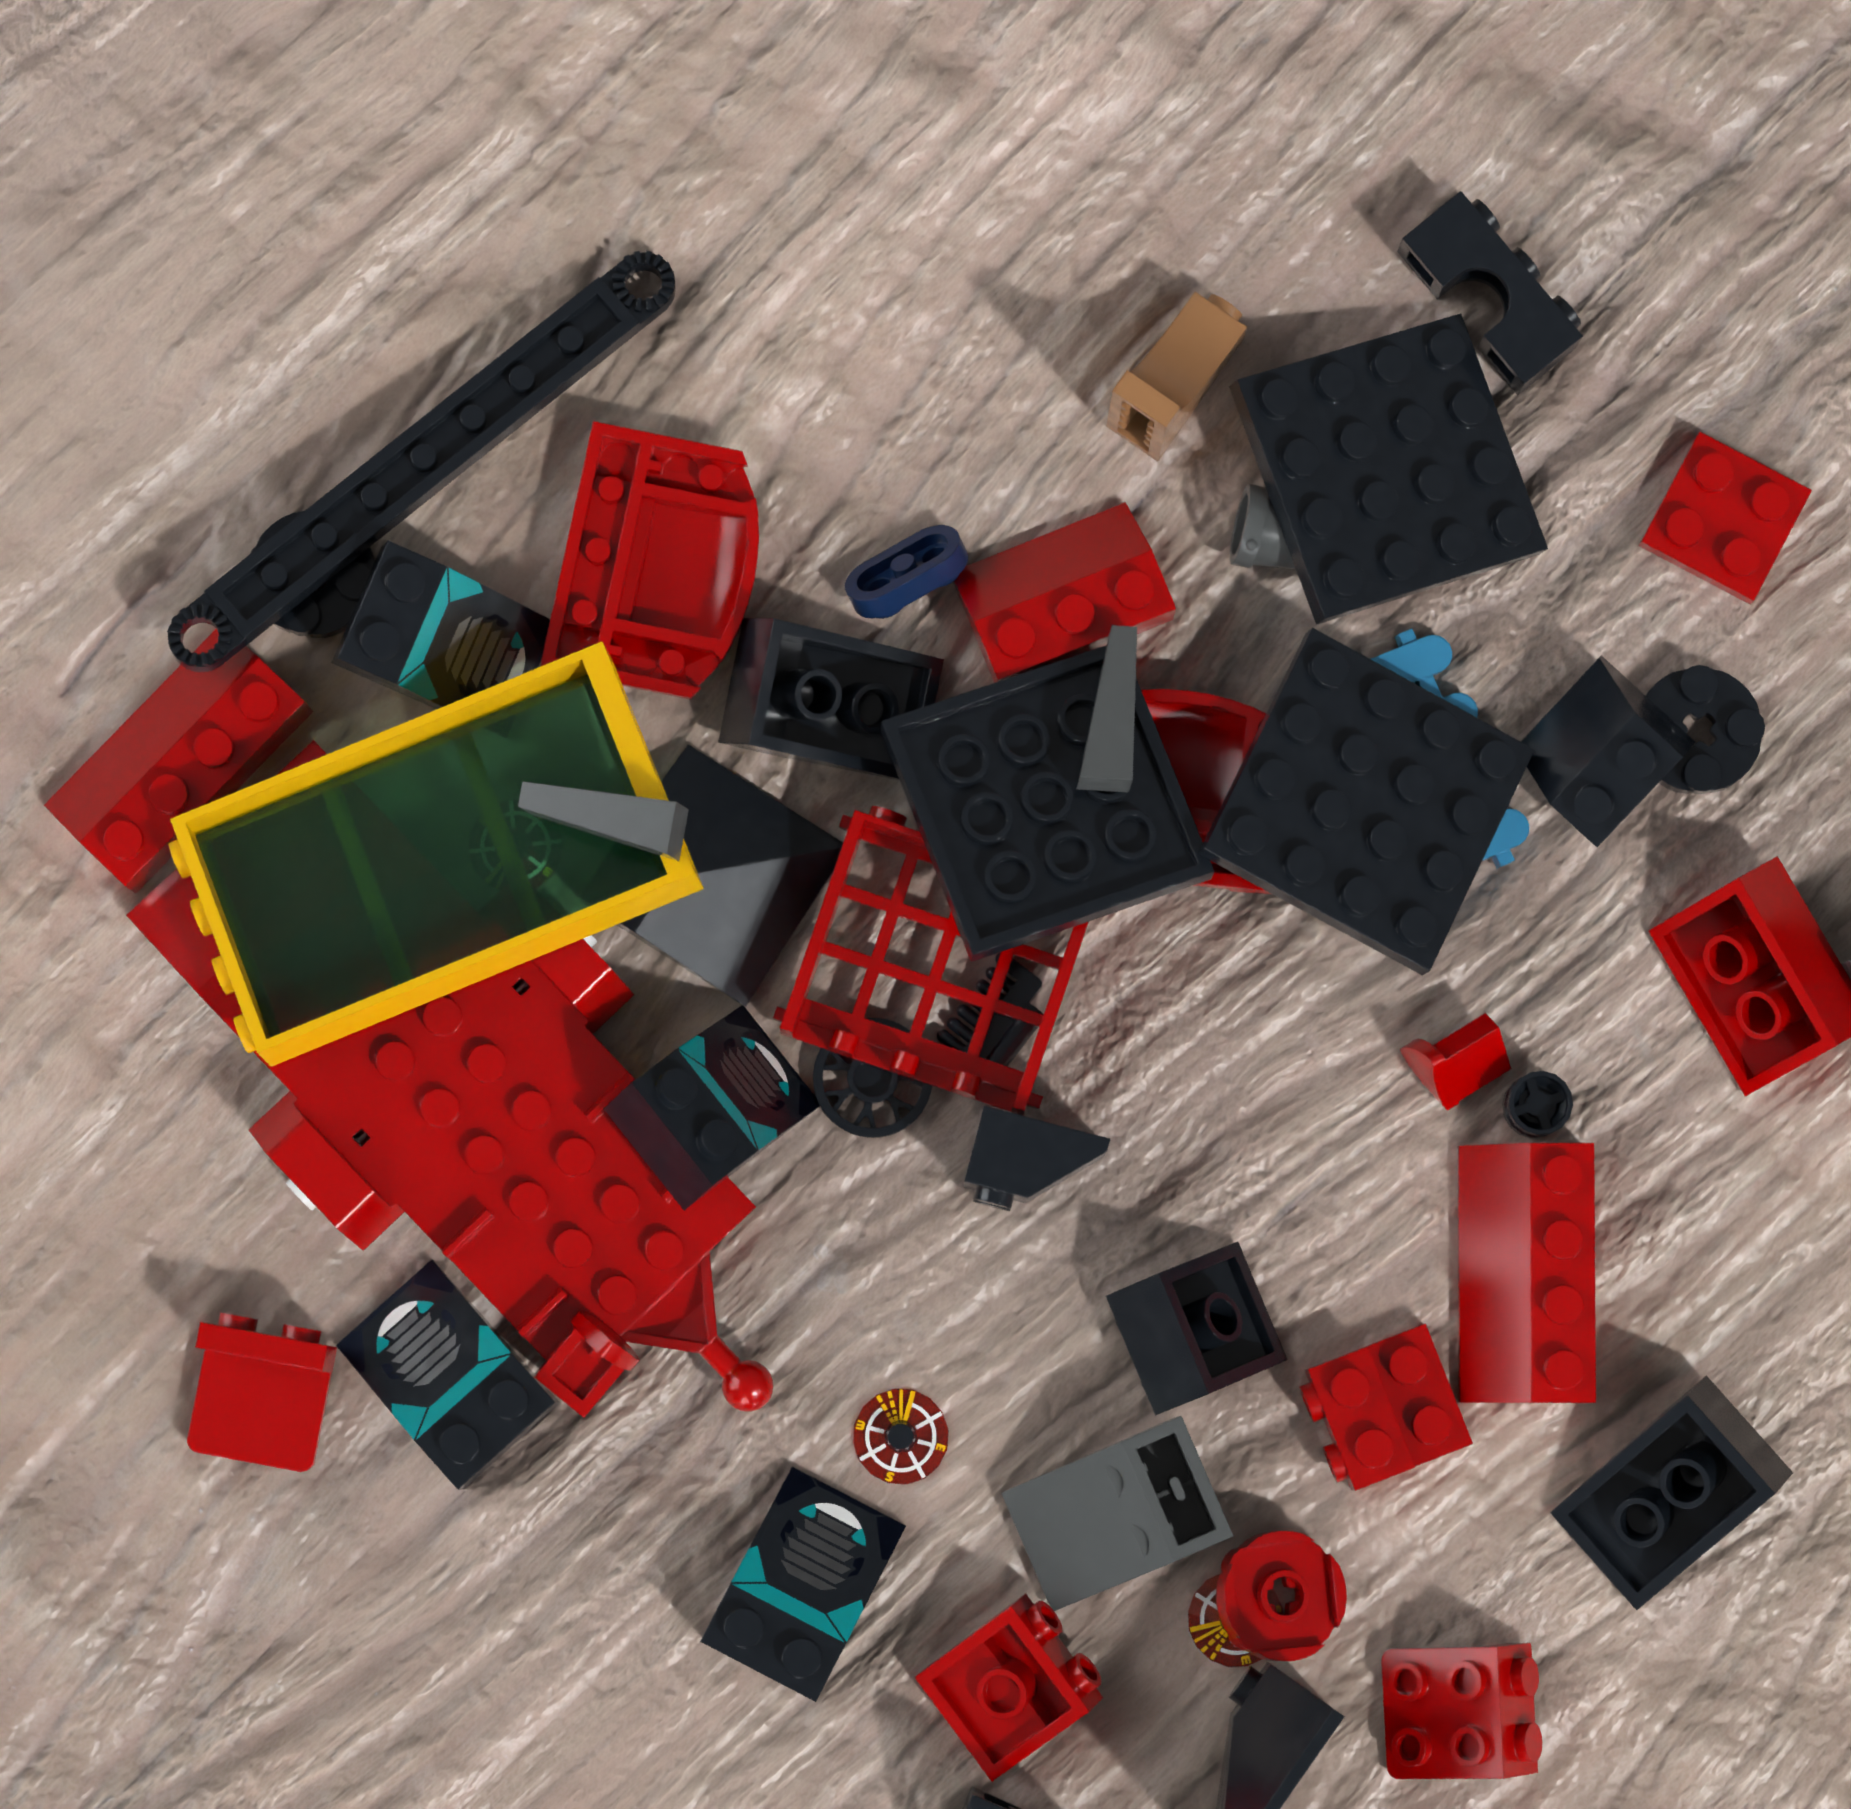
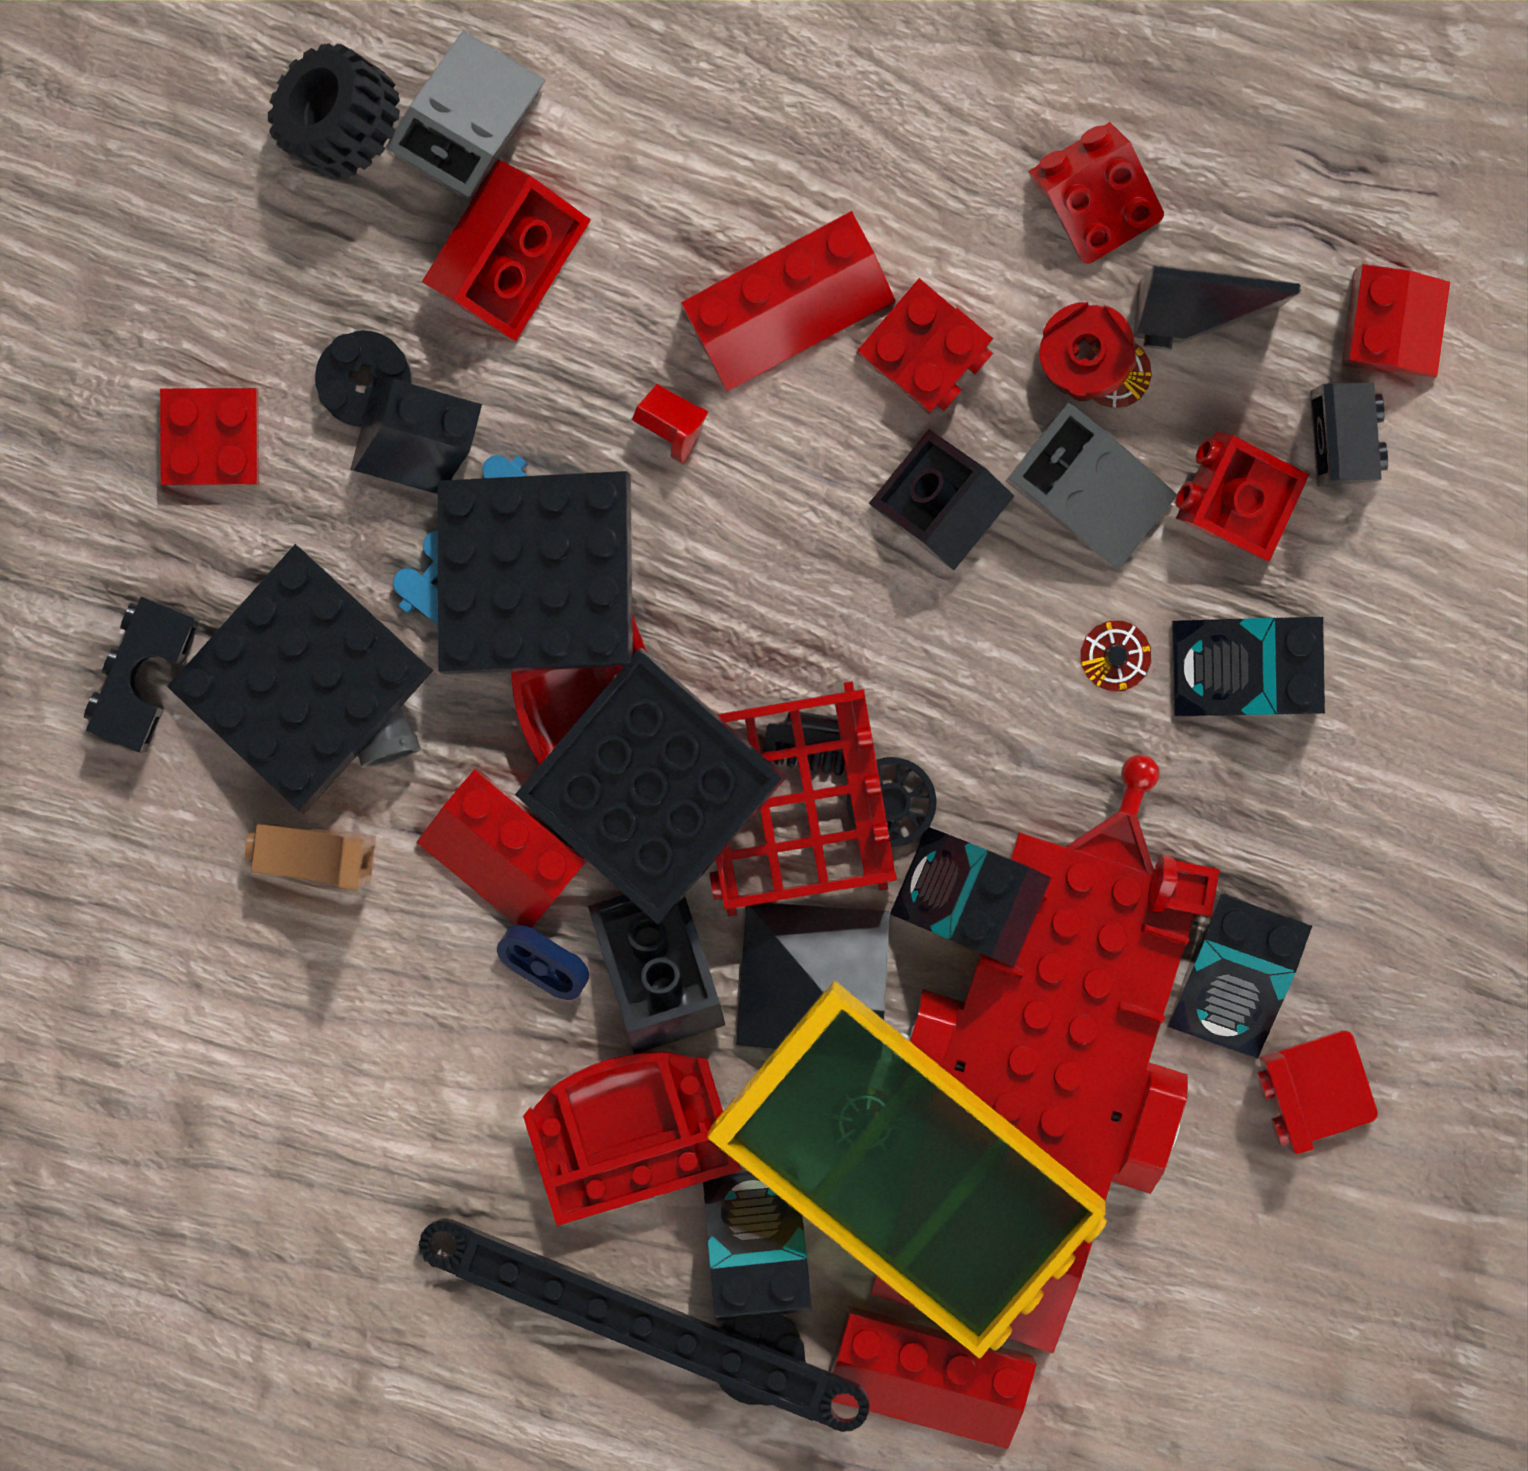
camera: 115 degrees left, 5 degrees up
(630, 820) = (819, 1049): dark grey piece -> none
(1025, 1157) = (893, 672): black slope -> none
(1110, 738) = (585, 766): dark grey piece -> none
(1546, 1099) = (672, 346): black wheel -> none
(1672, 1493) = (880, 129): black slope -> none

